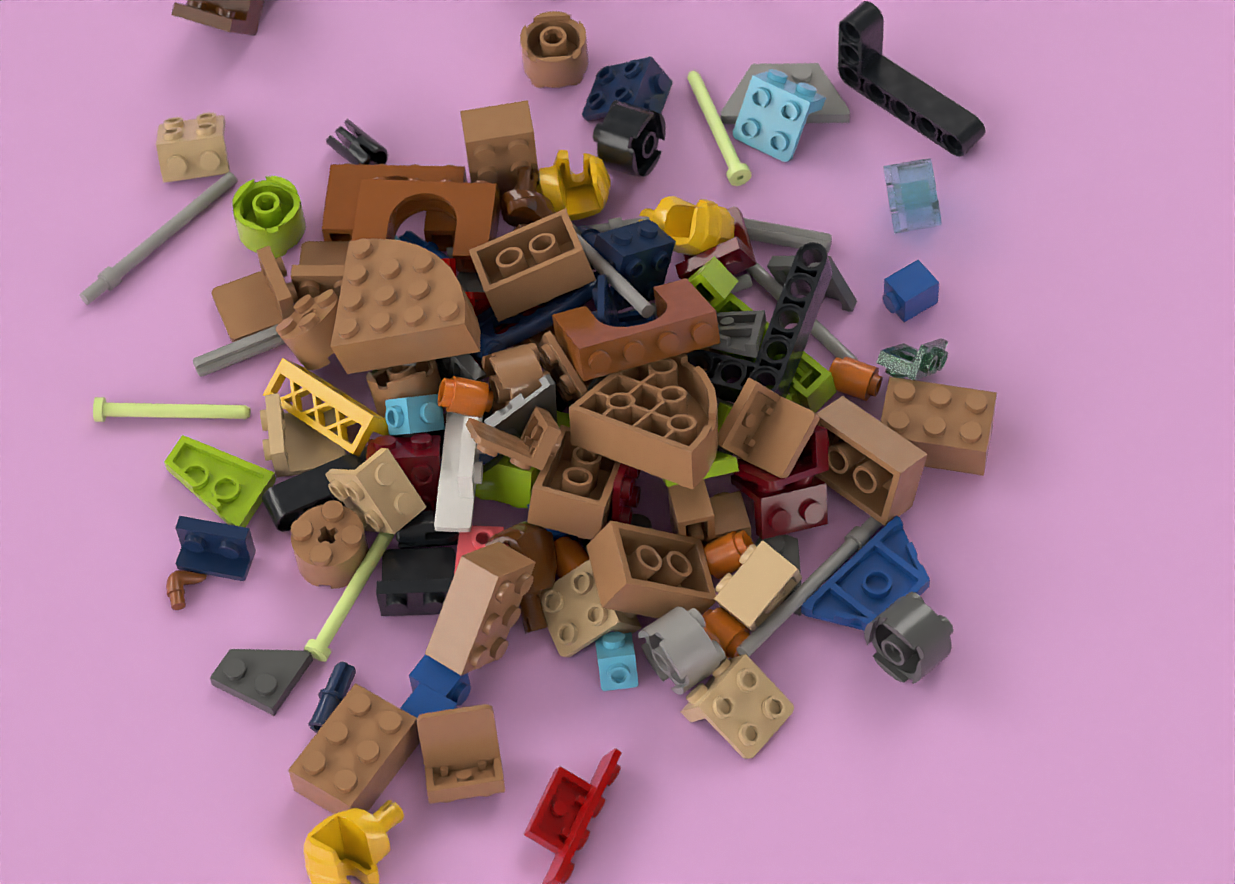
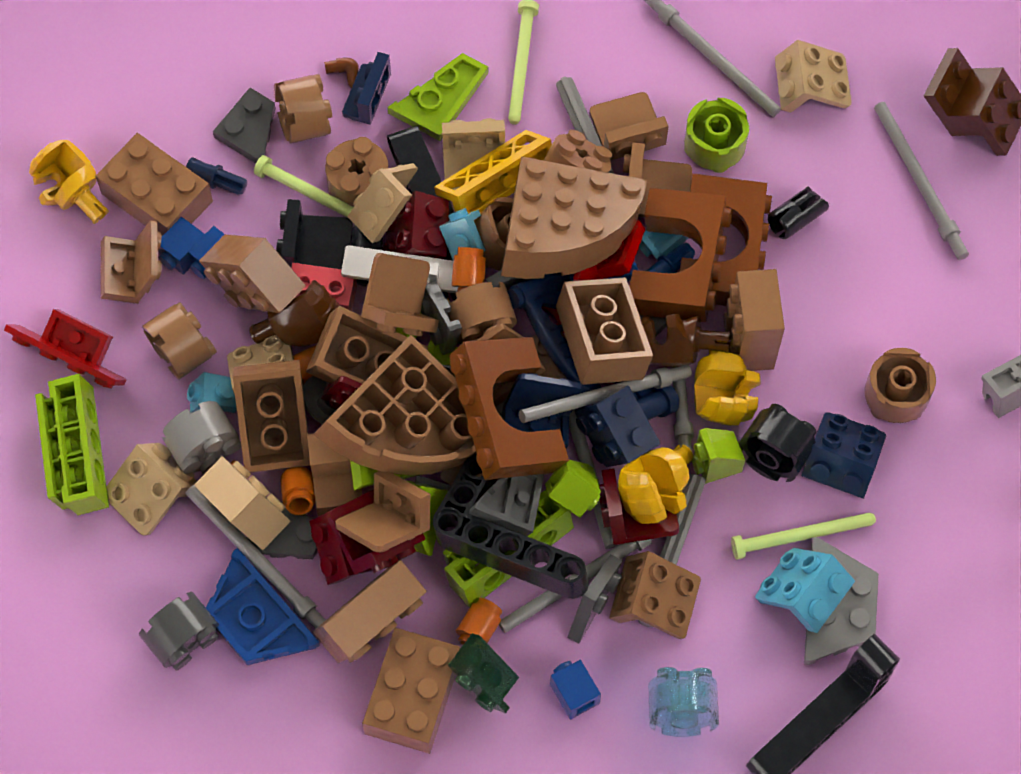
camera: 90 degrees right, 10 degrees up
(247, 606) = (302, 108): none -> medium nougat brick
(369, 28) = (947, 228): none -> light grey bar
(560, 690) = (178, 340): none -> medium nougat brick
(644, 187) = (717, 454): none -> lime slope
(700, 779) = (72, 446): none -> lime brick
(792, 227) = (656, 594): none -> medium nougat bracket

